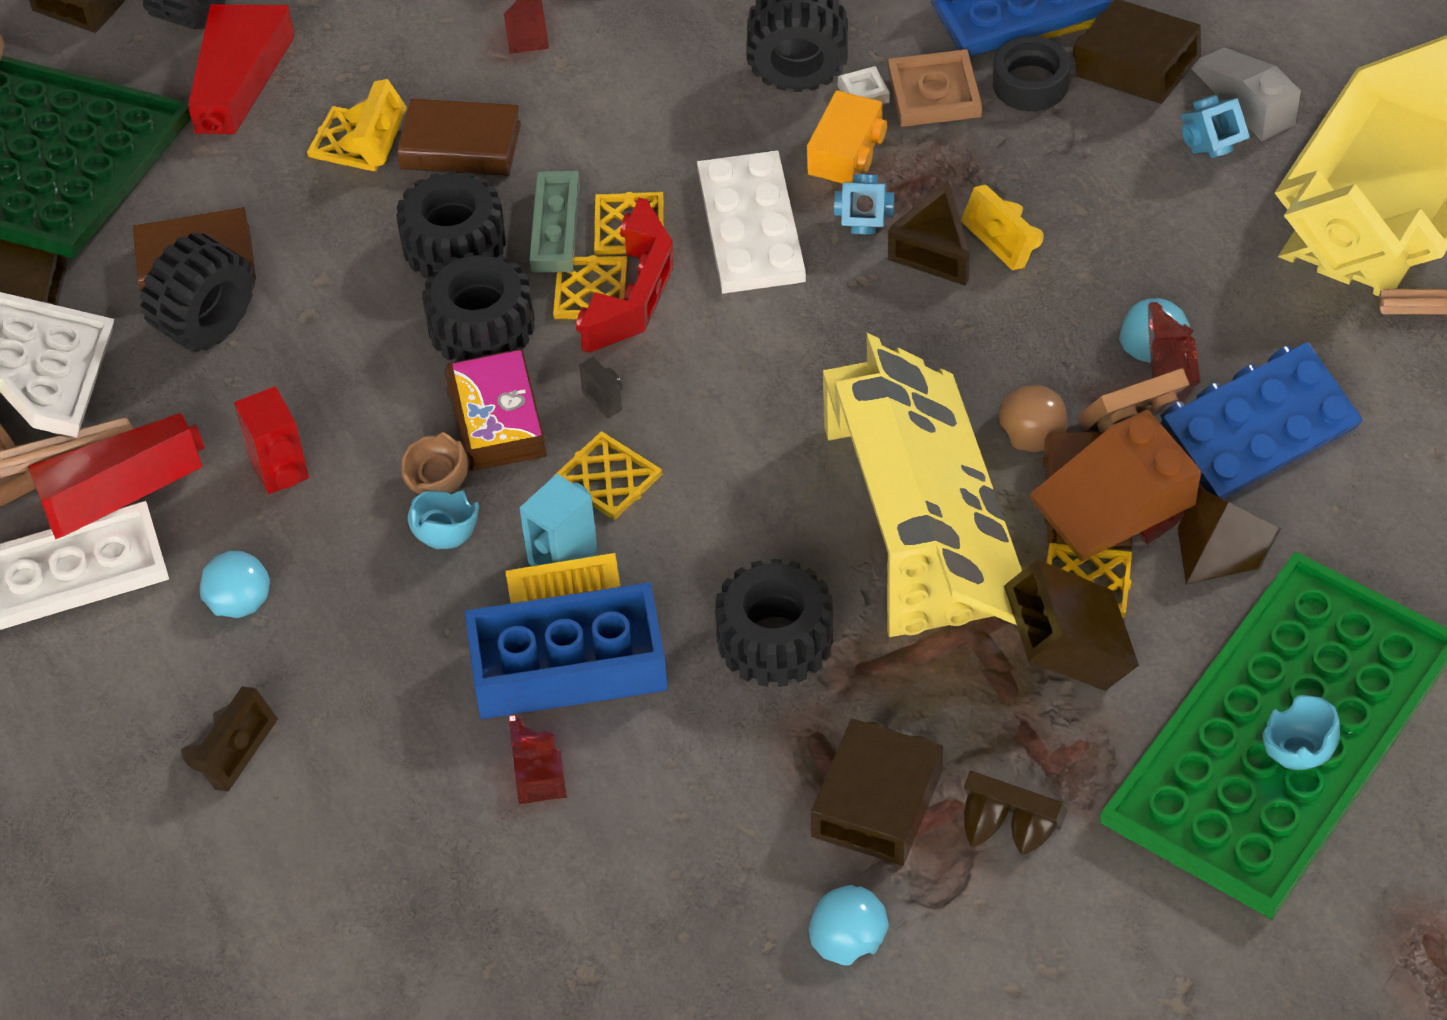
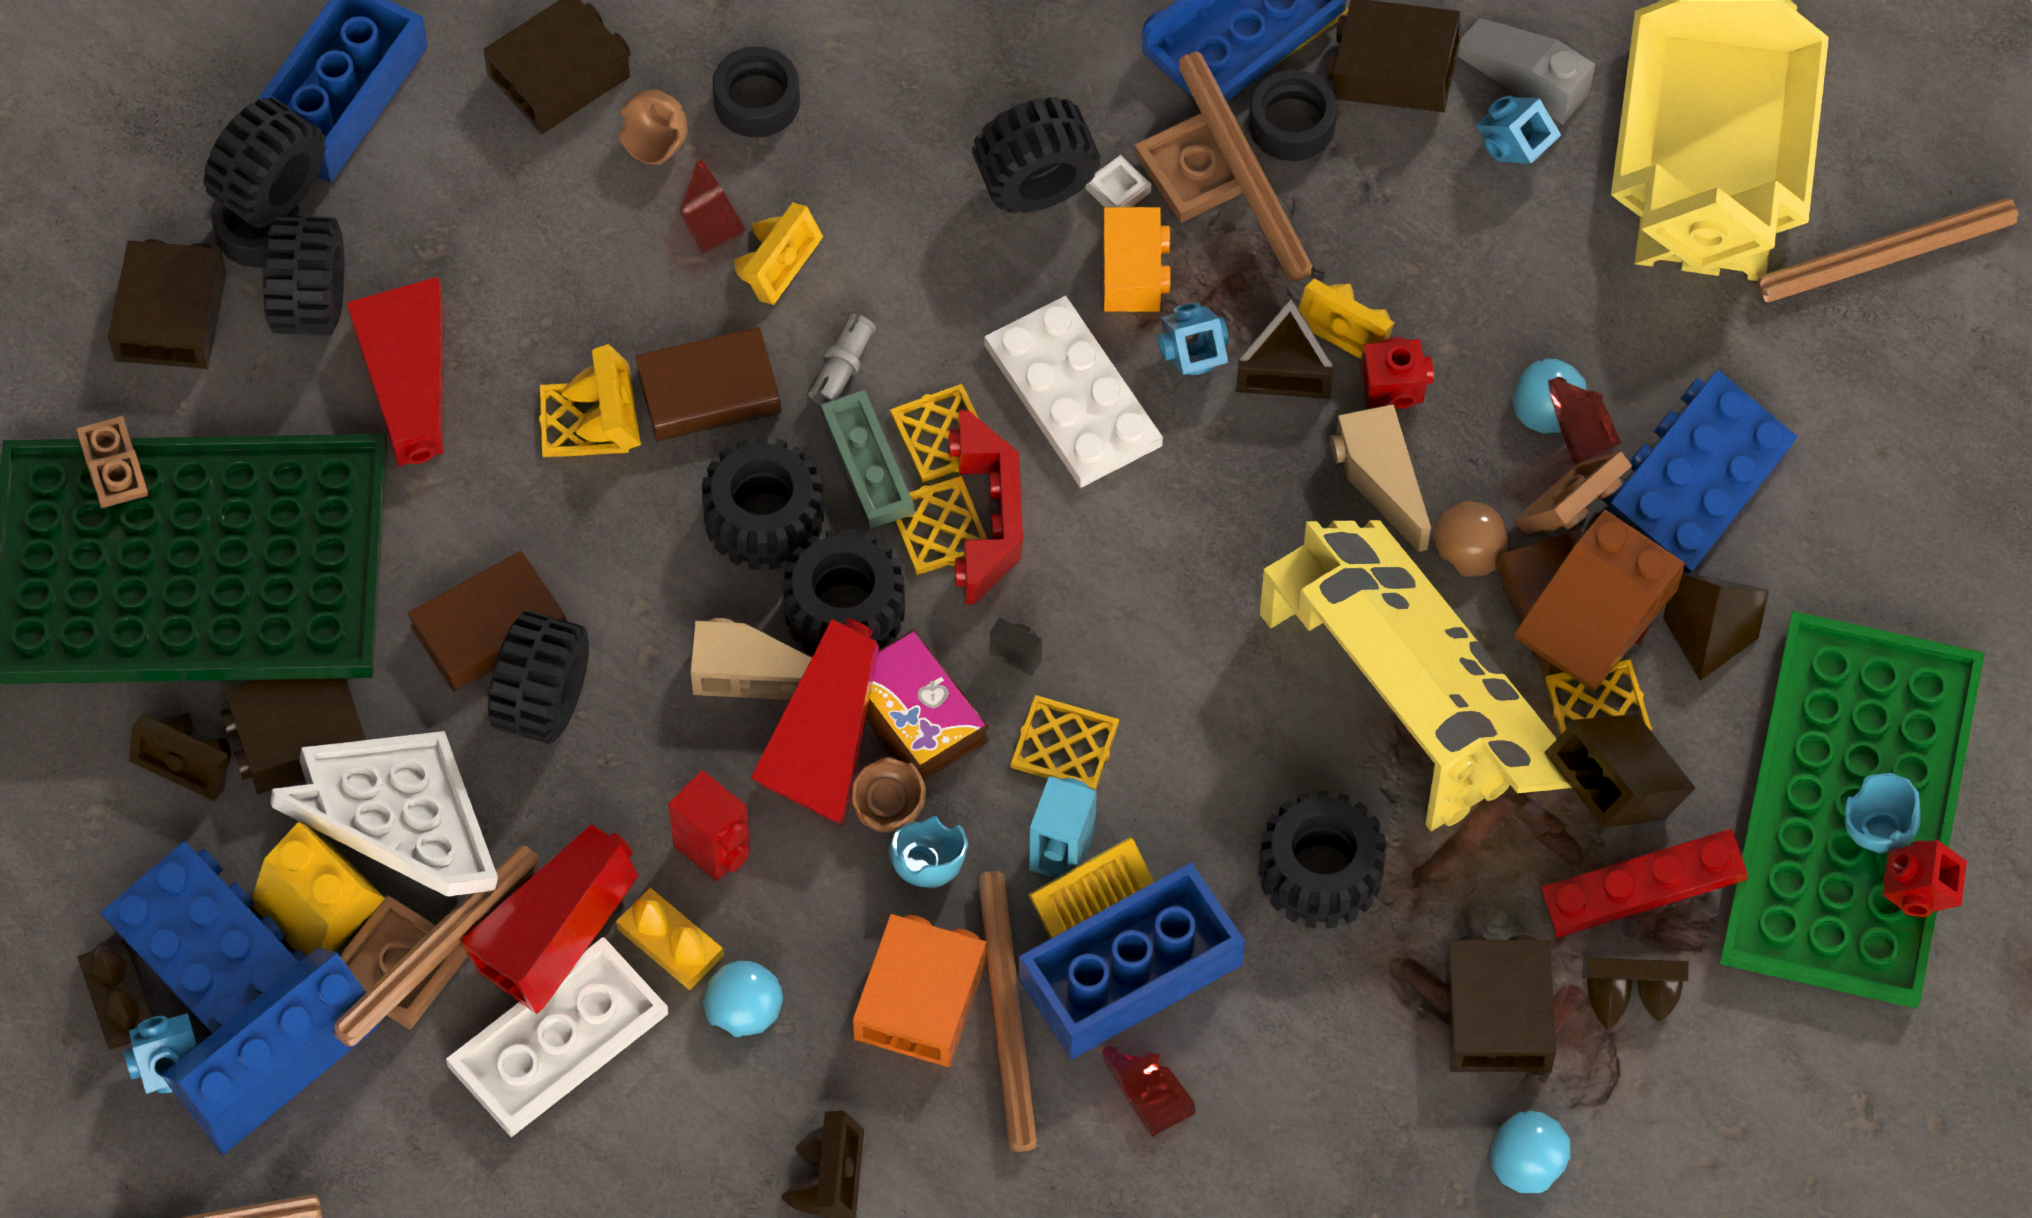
camera: 25 degrees left, 10 degrees up
(202, 521) = (670, 938): none -> yellow tile
(376, 338) = (743, 662): none -> tan slope
(380, 621) = (920, 989): none -> orange brick
(405, 389) = (822, 729): none -> red slope
(444, 668) = (1007, 1012): none -> medium nougat axle
(566, 62) = (784, 250): none -> yellow tile
(576, 146) = (842, 359): none -> light grey pin
(968, 94) = (1245, 167): none -> medium nougat axle
(977, 341) = (1381, 469): none -> tan slope
(1023, 273) = (1395, 373): none -> red brick
(1058, 731) = (1644, 883): none -> red plate
(1317, 797) = (1924, 878): none -> red brick

